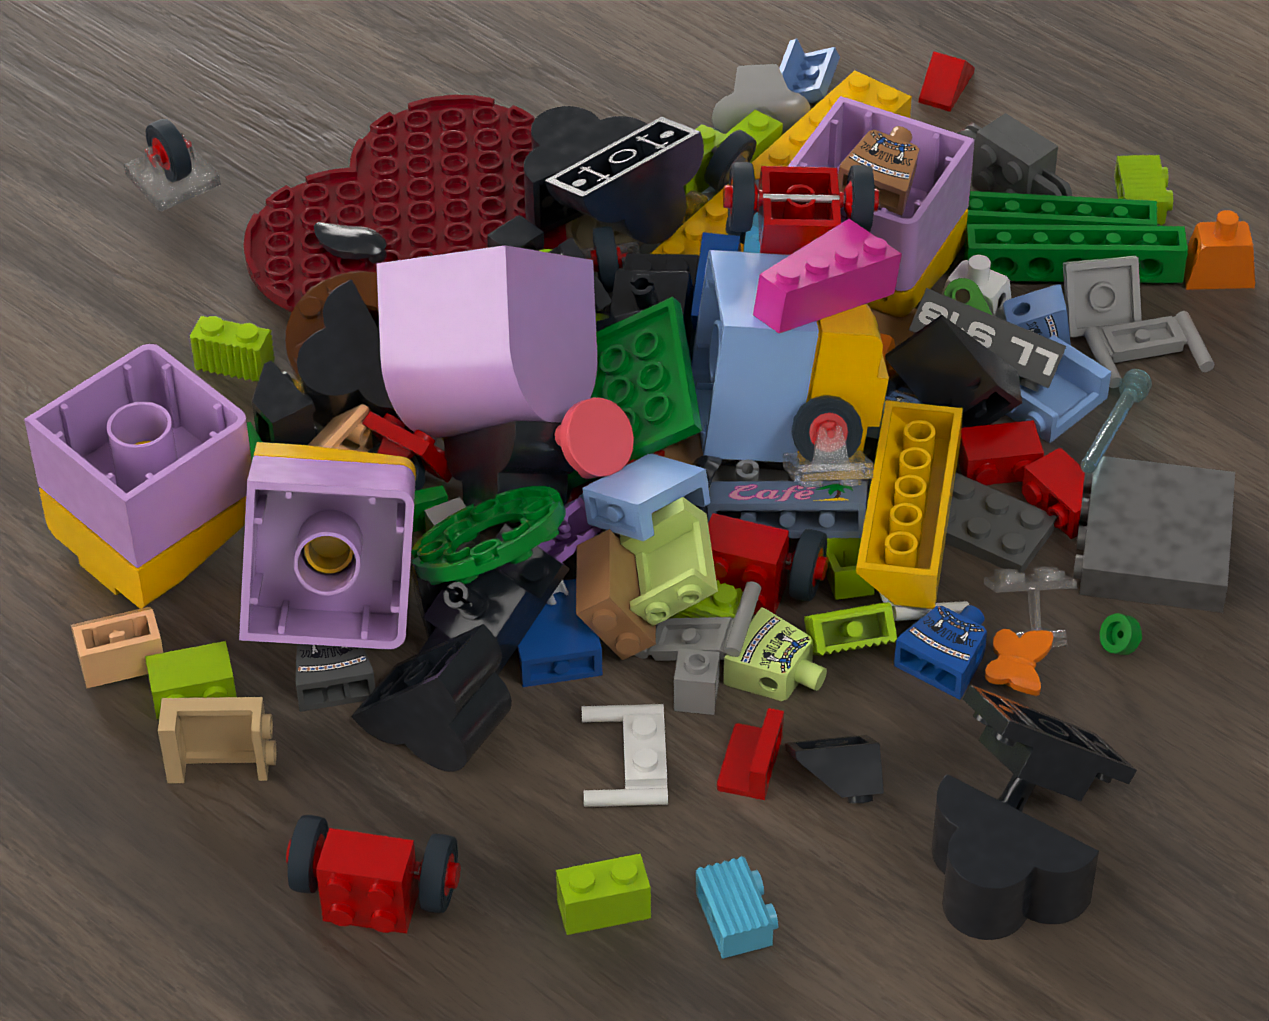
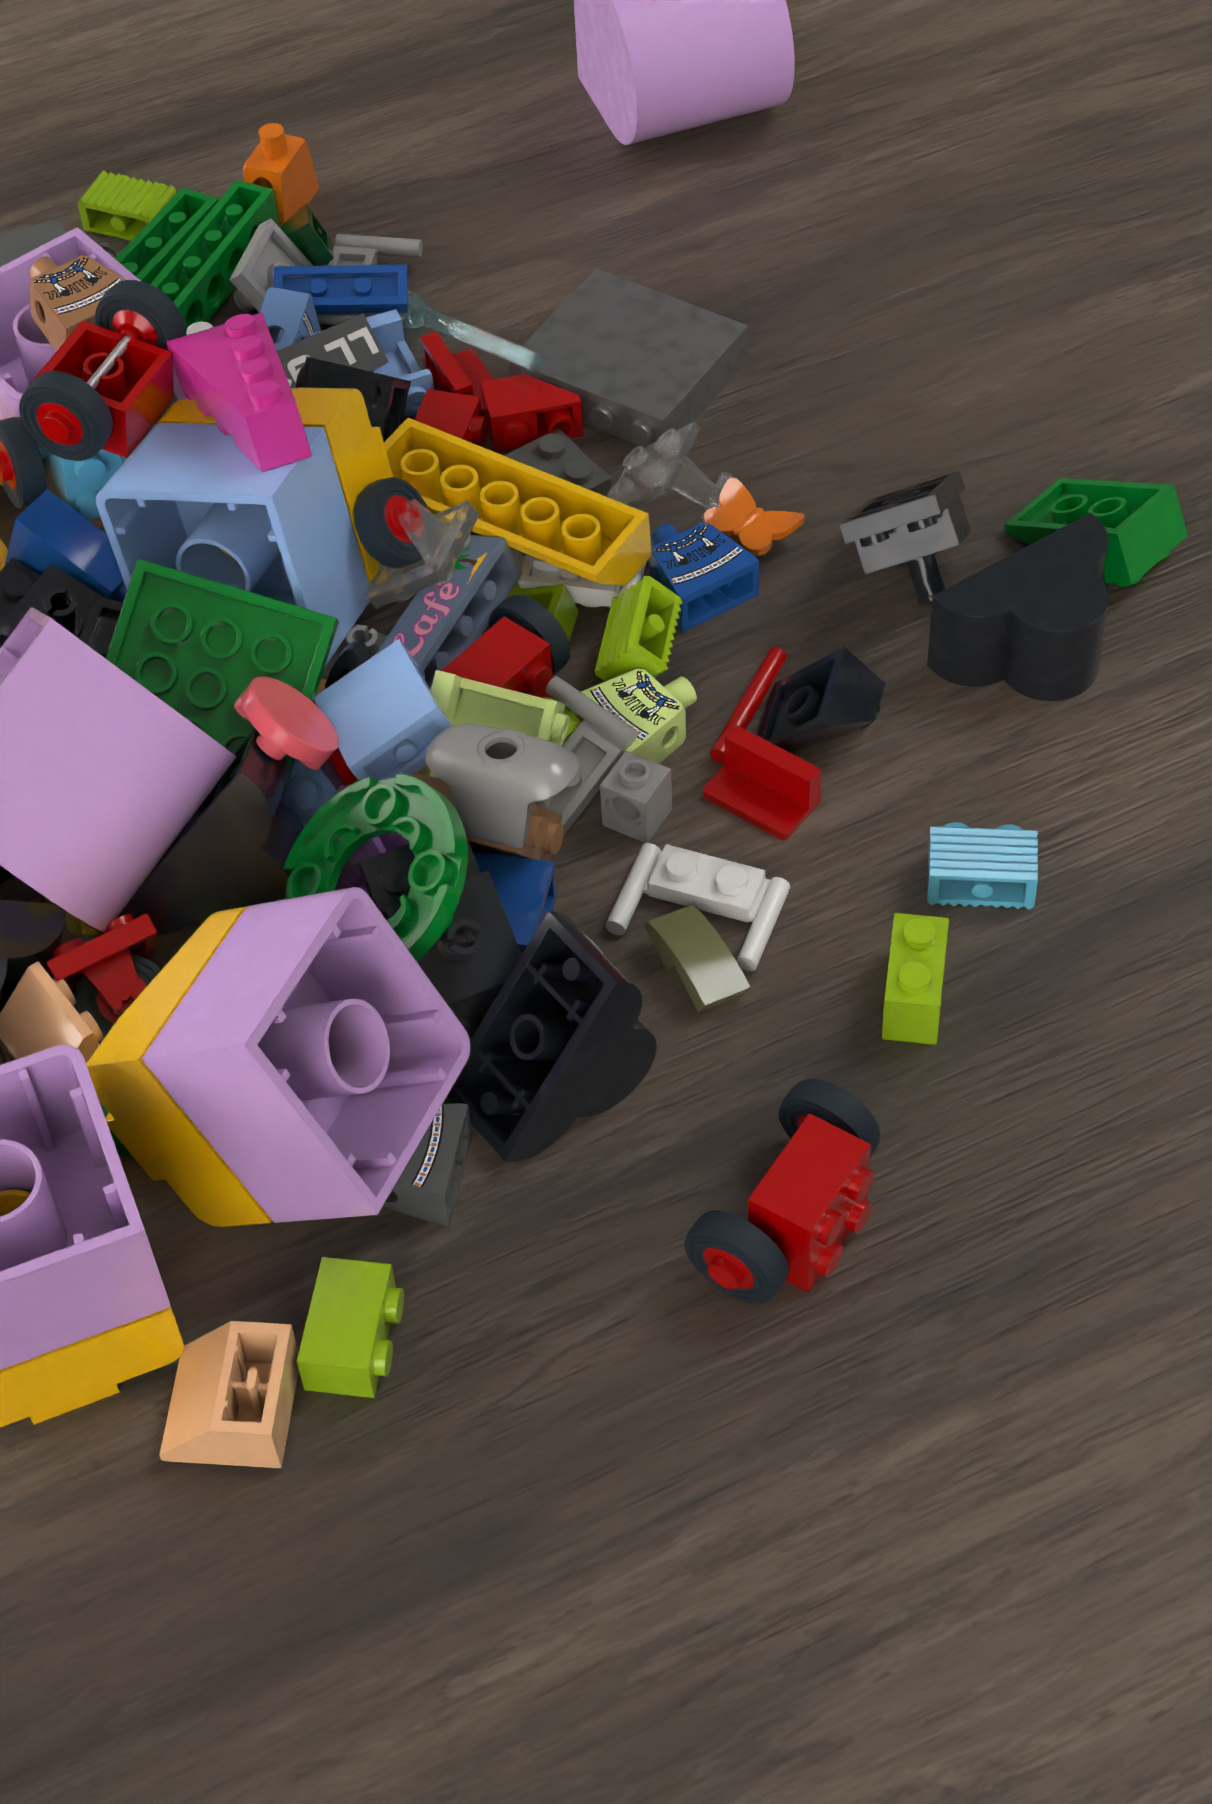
camera: 65 degrees left, 5 degrees up
(215, 733) = (502, 1264): tan panel -> none
(568, 764) = (699, 955): none -> olive slope
(603, 574) = (498, 776): none -> light grey piece
(840, 725) = (751, 698): none -> red bar
(1077, 432) = (456, 372): none -> red panel
(1107, 331) = (348, 287): none -> blue plate
(1120, 634) = (755, 444): green tile -> none
(1143, 891) = (1138, 517): none -> green slope
(1169, 295) = (309, 236): none -> dark green slope

